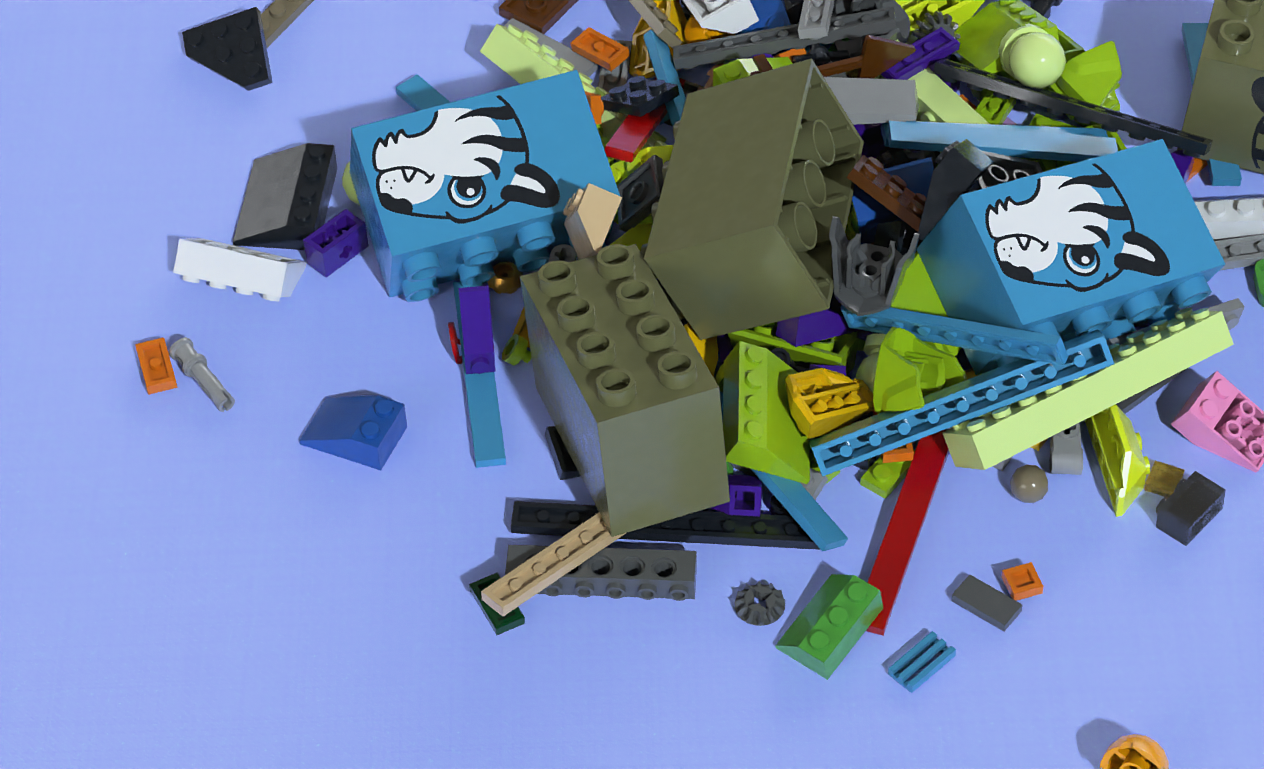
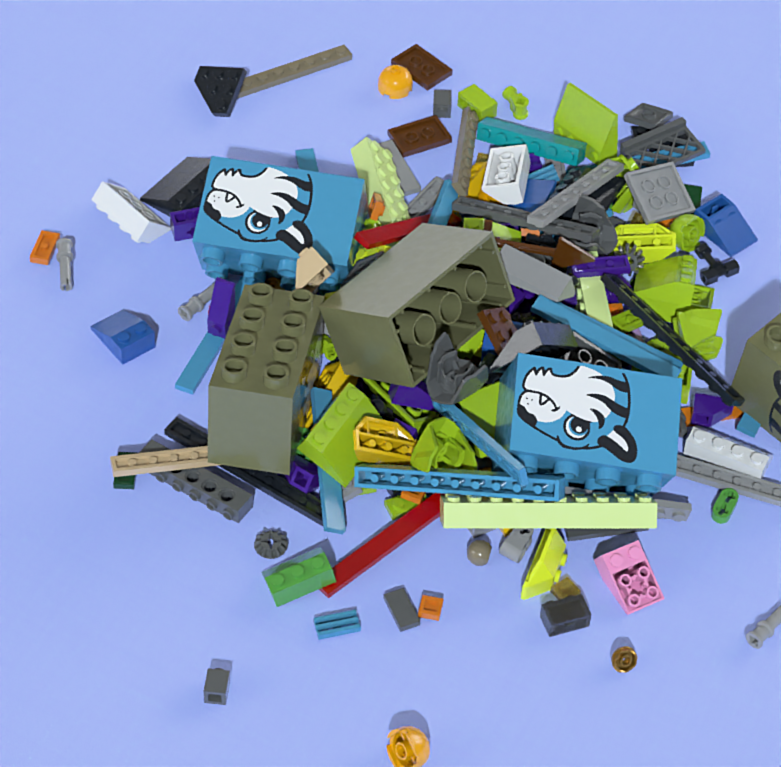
camera: 25 degrees right, 0 degrees up
(422, 343) = (195, 304): none -> light grey pin
(600, 49) = (425, 179): orange plate -> none
(639, 96) = (410, 215): black plate -> none
(1032, 56) = (666, 296): yellowish green tile -> none

